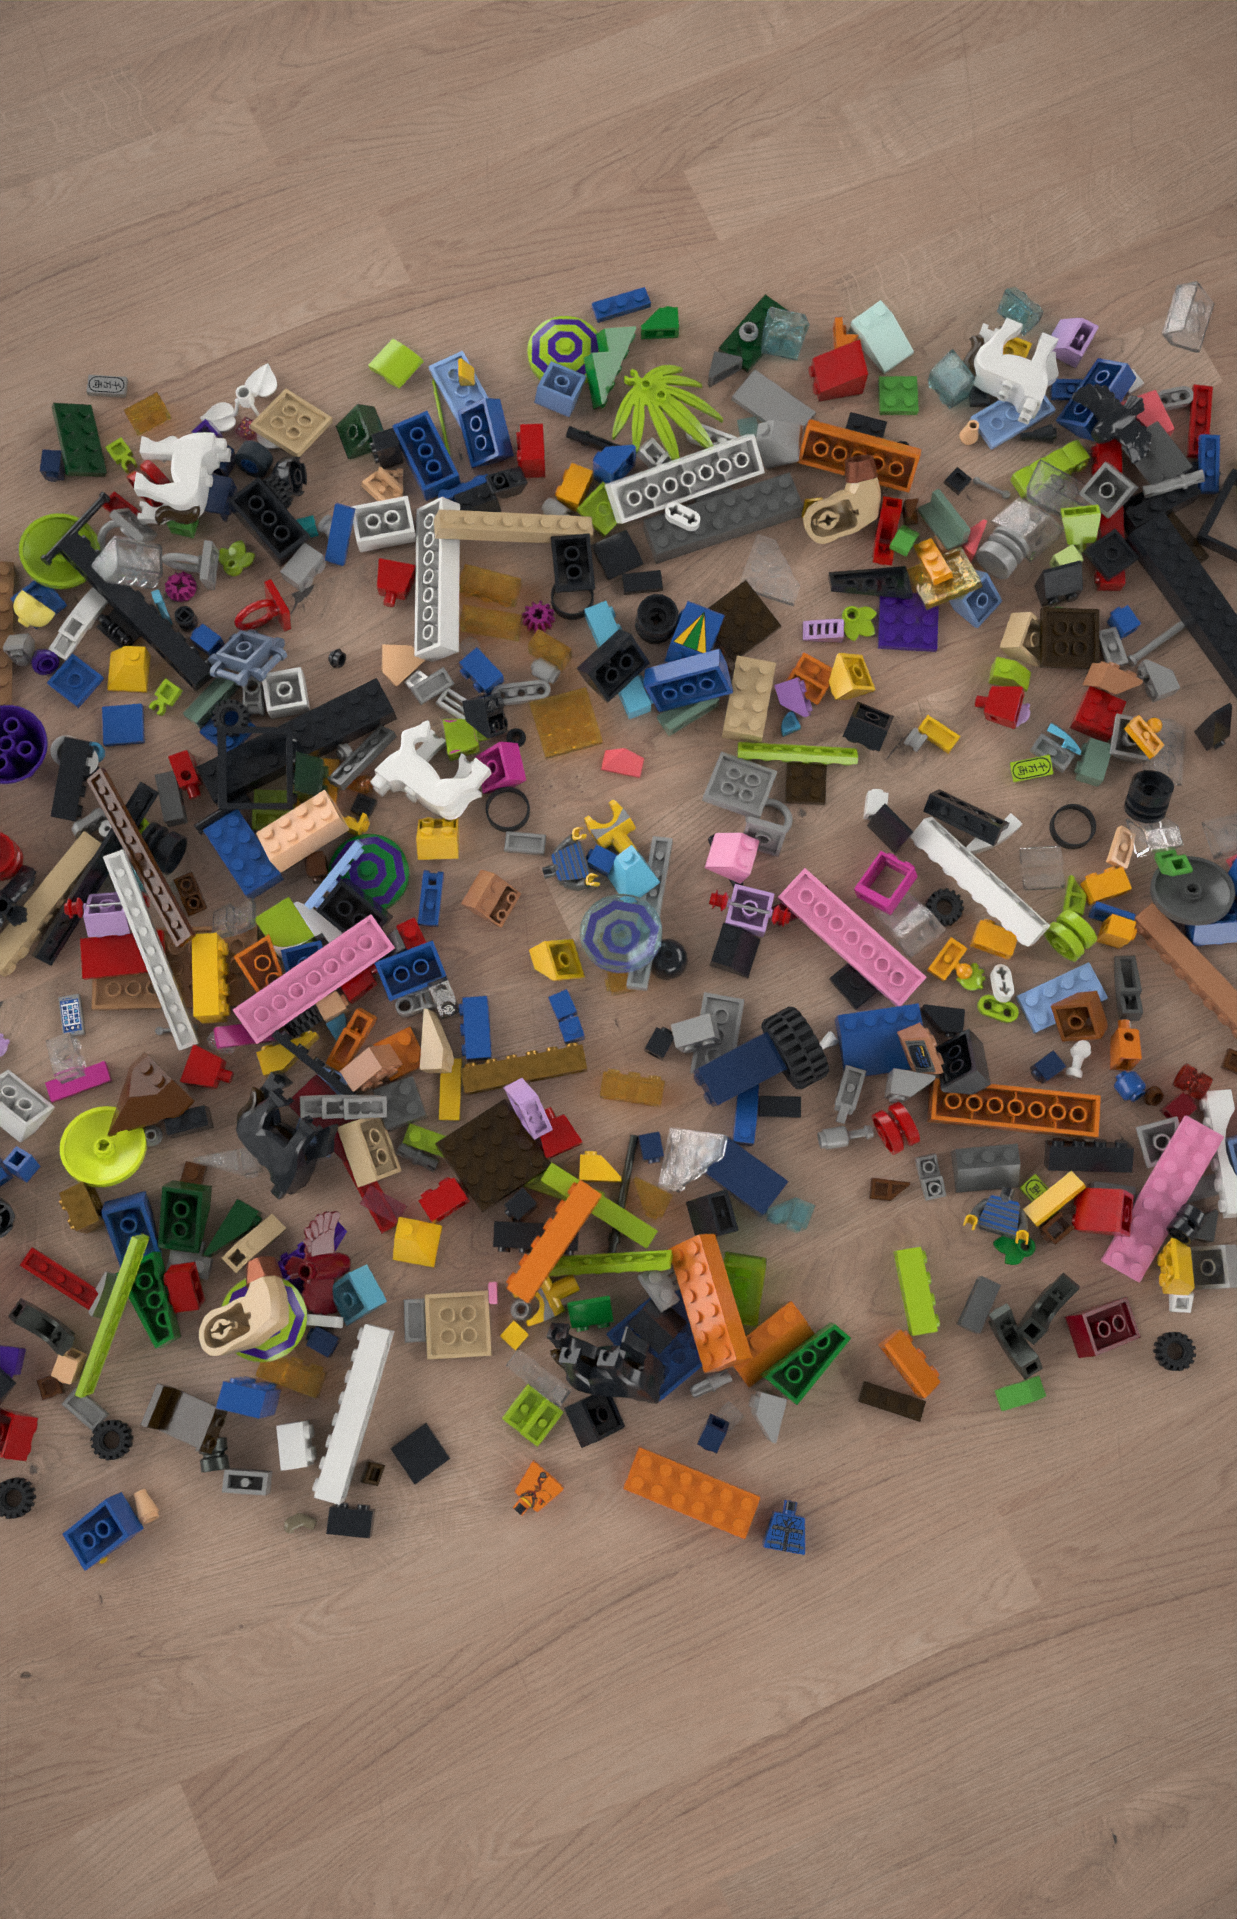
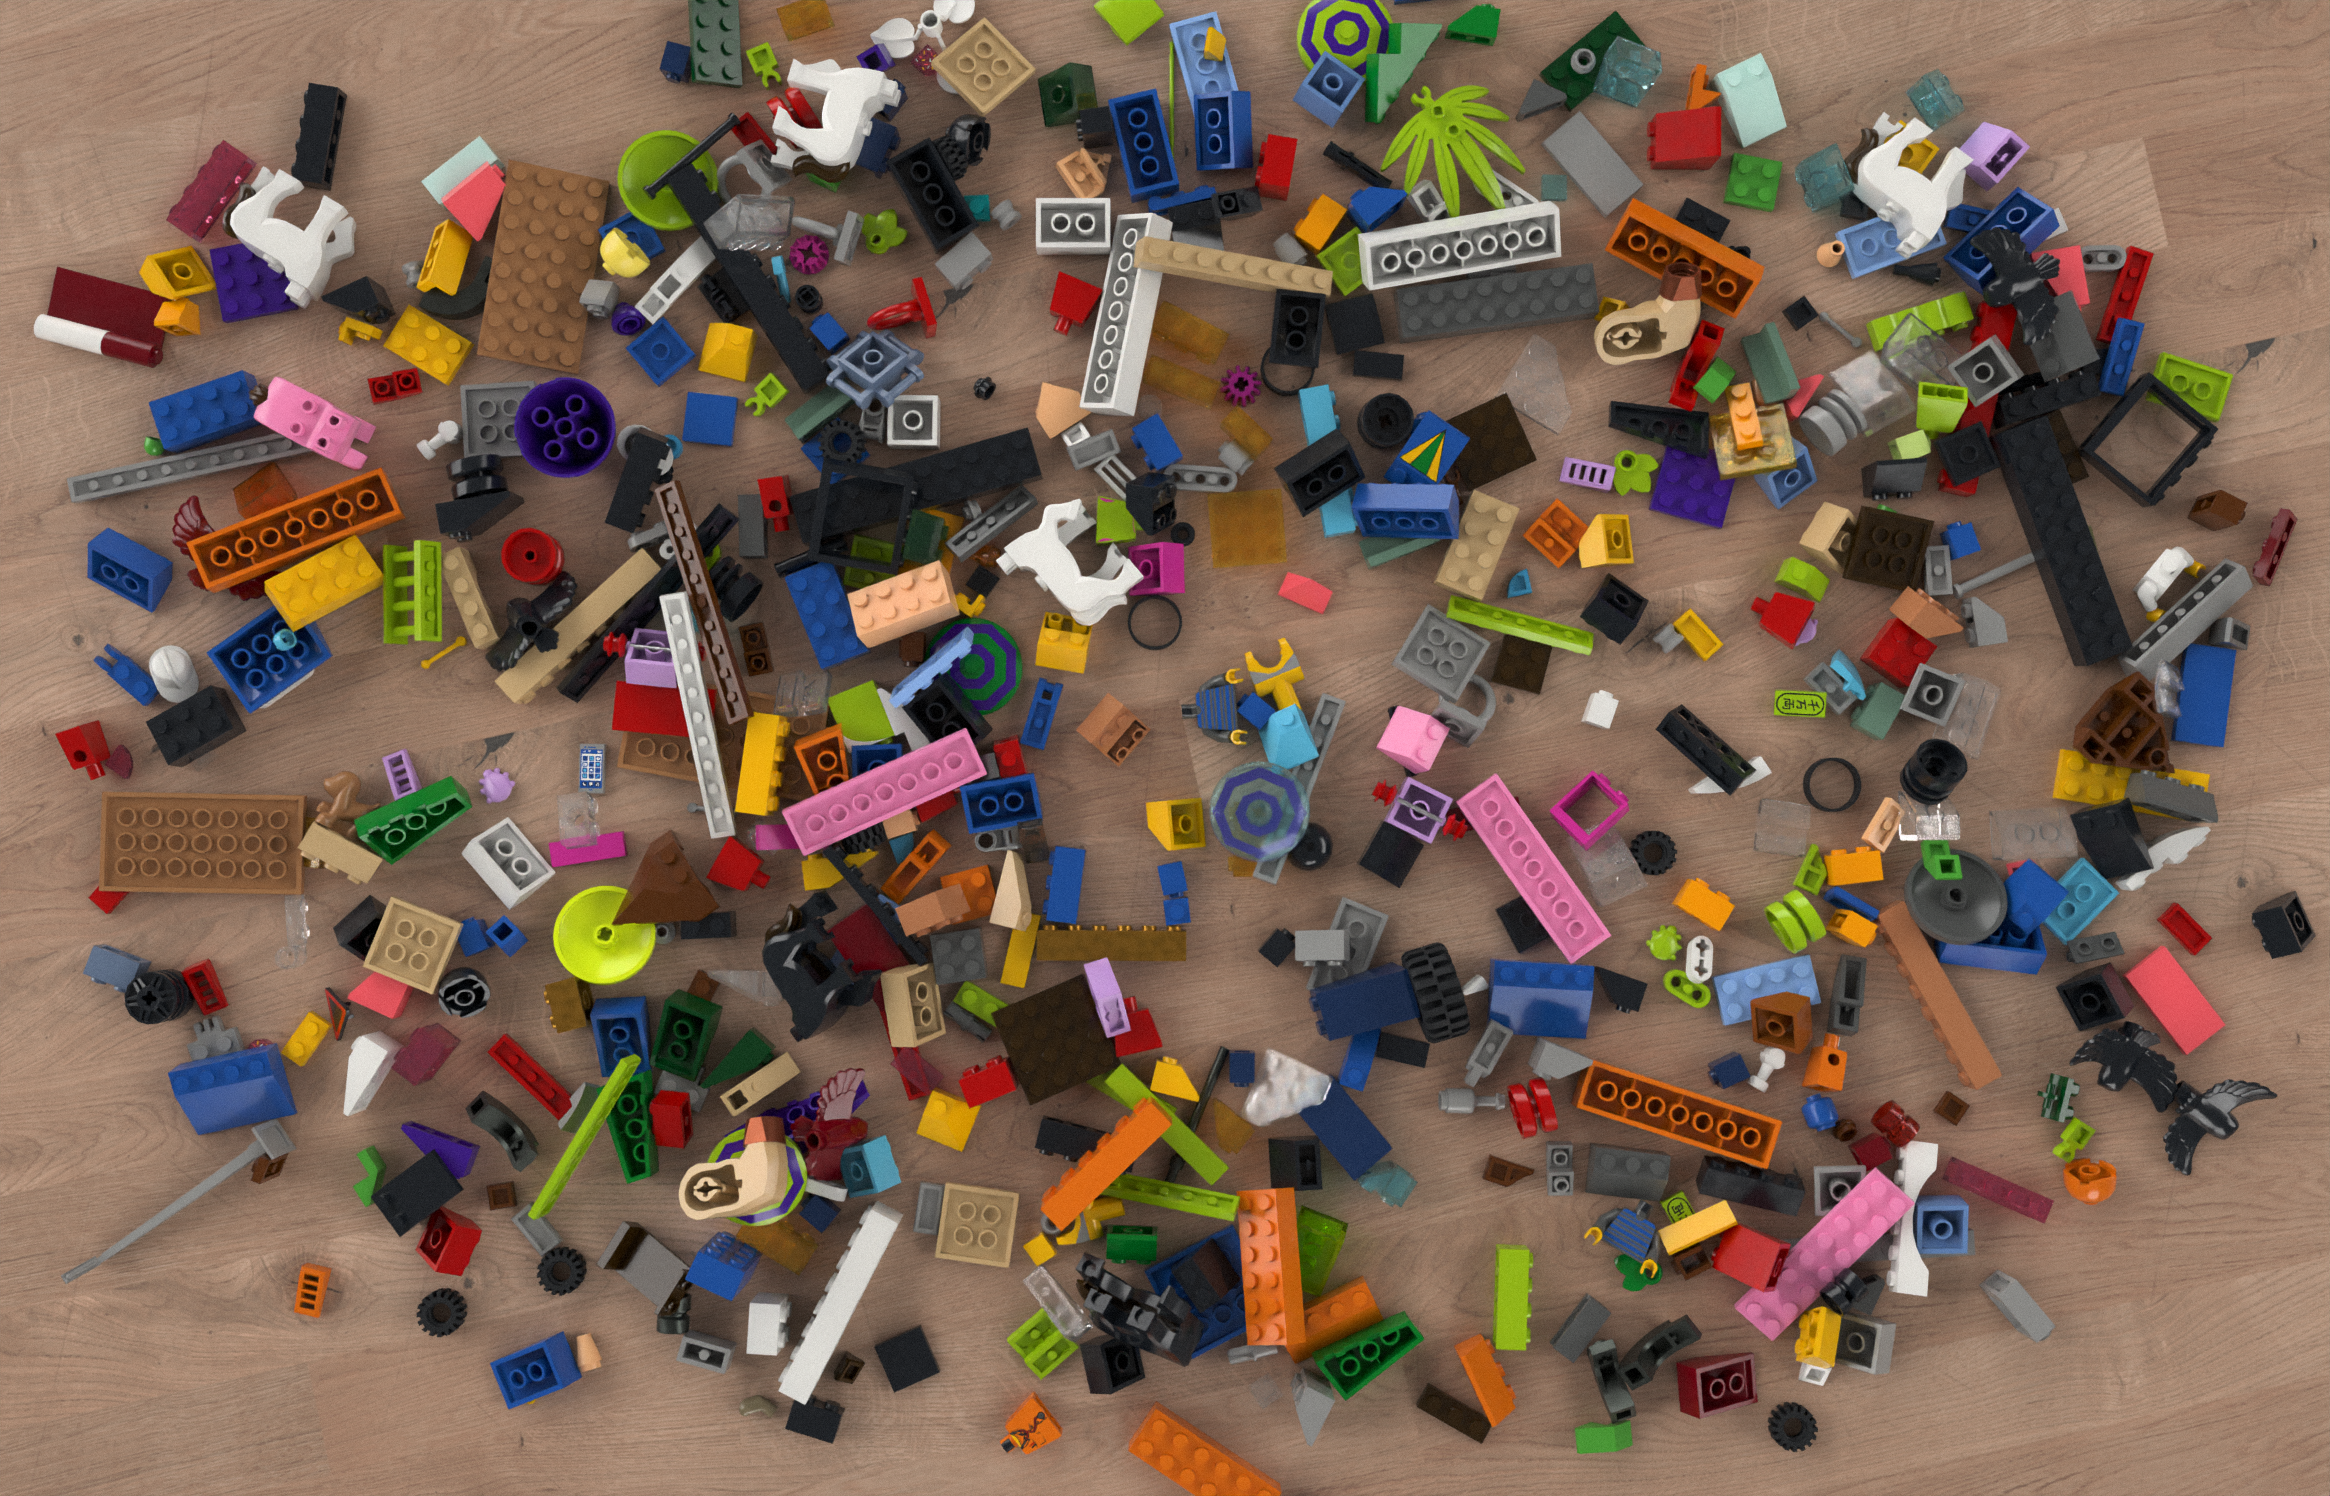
camera: 10 degrees right, 10 degrees up
(69, 1366) = (525, 1183): light nougat brick -> none
(253, 459) = (928, 106): black wheel -> none
(340, 534) = (1017, 230): blue tile -> none
(343, 1106) = (892, 950): light grey slope -> none
(493, 1292) = (1024, 1198): bright pink tile -> none
(520, 1206) = (1075, 1107): black brick -> none
(525, 843) = (1167, 668): light grey tile -> none
(632, 1088) = (1234, 993): clear yellow brick -> none
(660, 1288) = (1218, 1237): light grey hinge -> none
(682, 516) = (1449, 292): white beam -> none
(713, 1433) = (1243, 1408): dark blue brick -> none
(779, 442) = (1588, 219): light grey slope -> none
(792, 696) = (1529, 554): medium lavender slope -> none
(890, 828) = (1610, 745): black slope -> none
(909, 512) = (1730, 342): reddish brown slope -> none
(920, 1050) = (1583, 1024): slope -> none
(948, 960) = (1642, 918): light orange plate -> none
(964, 1064) = (1628, 1051): black slope -> none
(979, 881) = (1702, 834): white brick -> none
(1130, 1189) = (1768, 1228): dark grey tile -> none
(1145, 734) = (1947, 697): light orange plate -> none
(1181, 481) = (2069, 379): light grey pin -> none
(1188, 317) = (2147, 152): clear slope -> none
(1215, 728) = (2037, 703): black slope -> none

